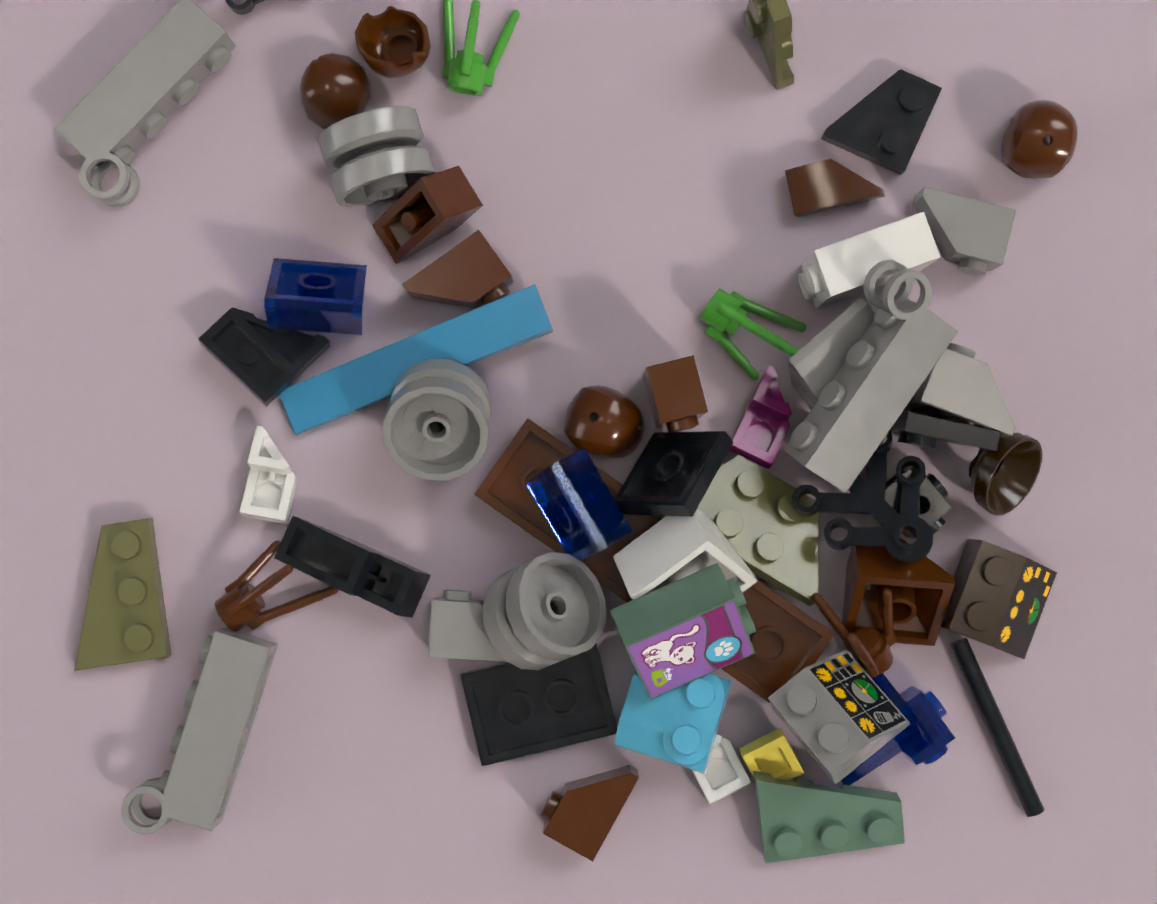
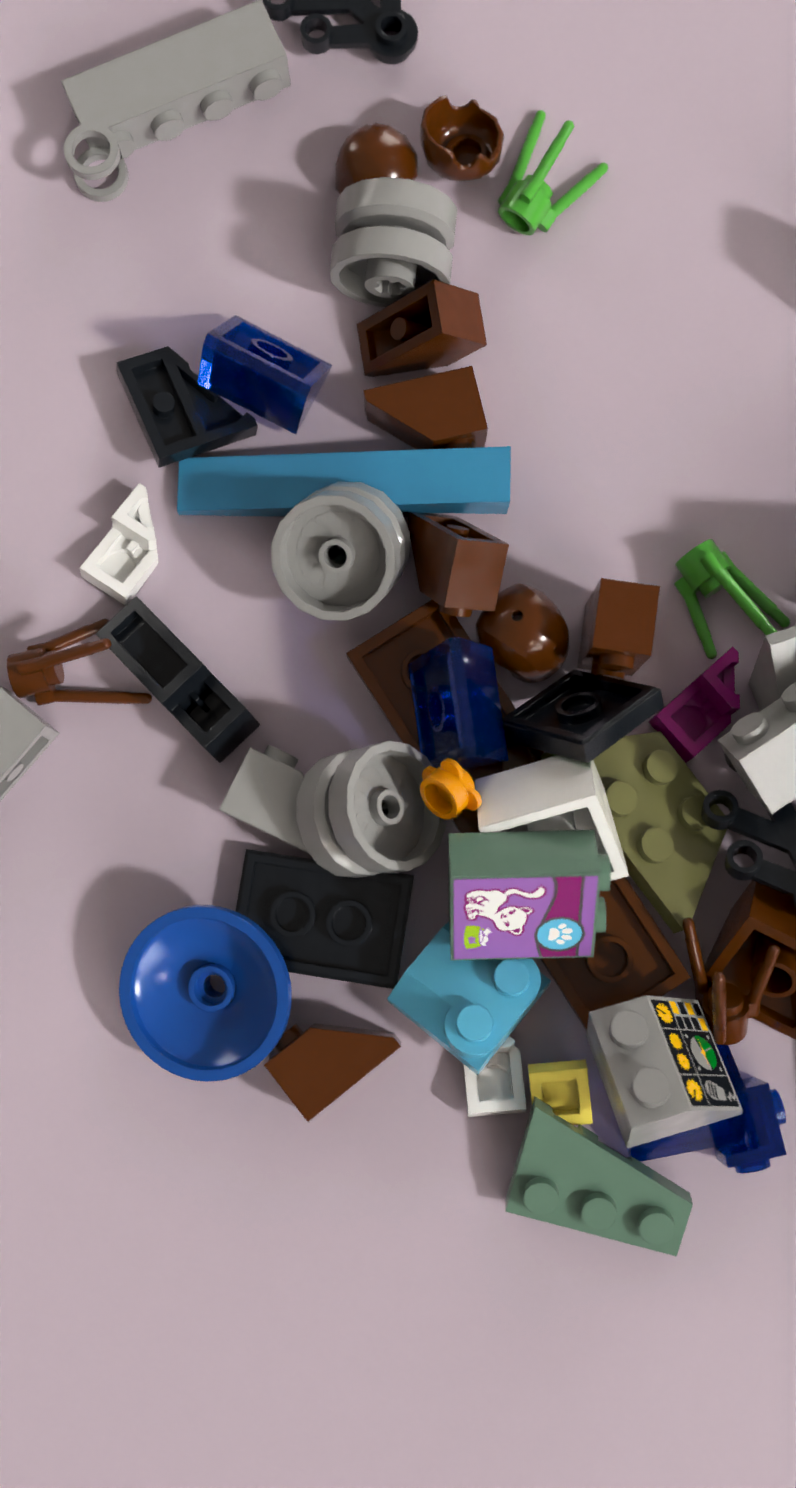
camera: 20 degrees right, 5 degrees down
(469, 822) = (177, 1011): none -> blue dish
(529, 390) = (456, 563): none -> reddish brown slope
(596, 575) = (448, 790): none -> light orange plate

